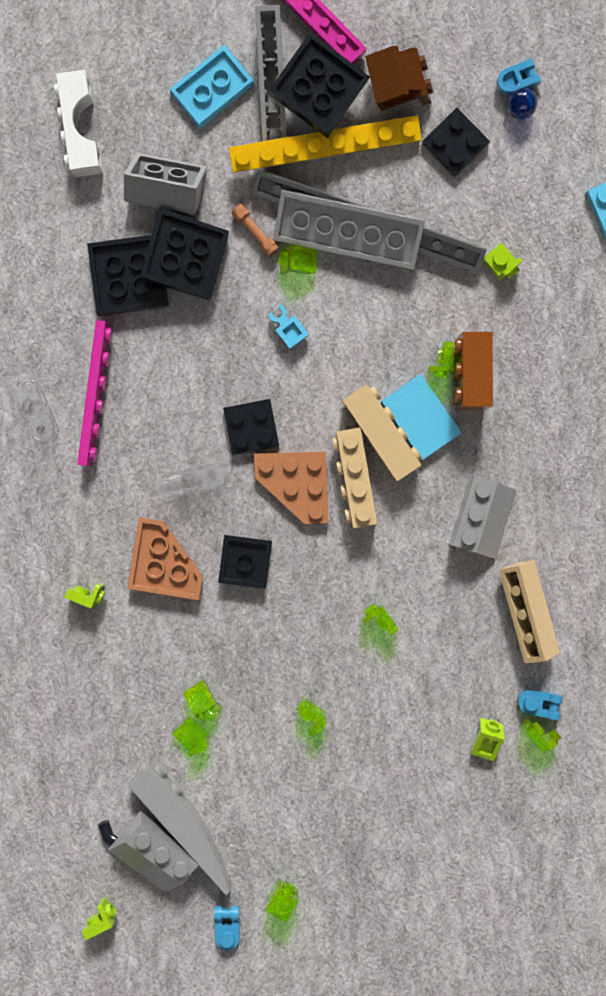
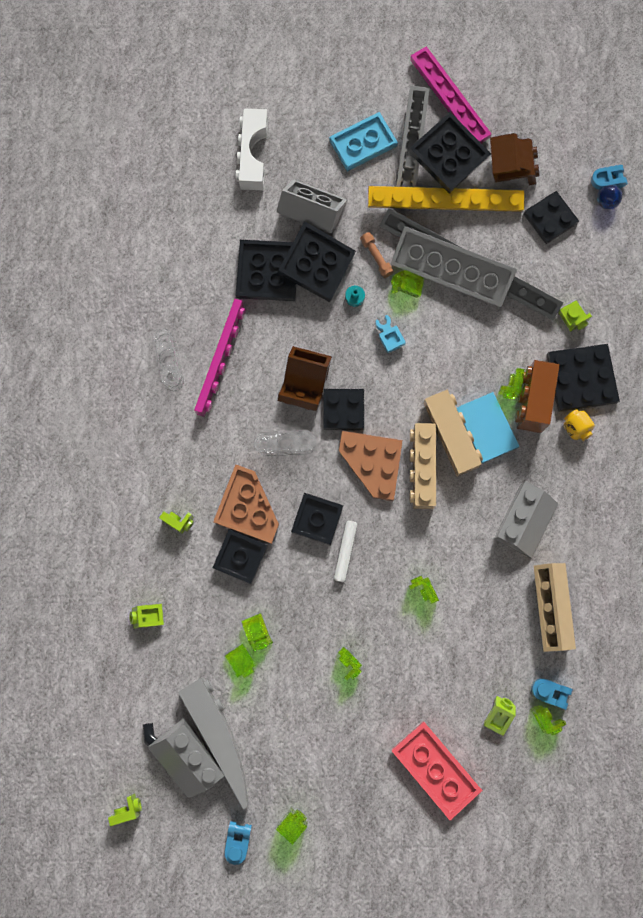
camera: 15 degrees right, 10 degrees down
(76, 707) = (146, 616): none -> lime bracket
(166, 621) = (240, 556): none -> black plate
(198, 401) = (304, 378): none -> reddish brown piece
(238, 292) = (355, 296): none -> teal tile
(284, 591) = (345, 551): none -> white axle
(427, 811) = (436, 770): none -> coral plate
(523, 335) = (584, 377): none -> black plate
(526, 395) = (578, 425): none -> yellow head

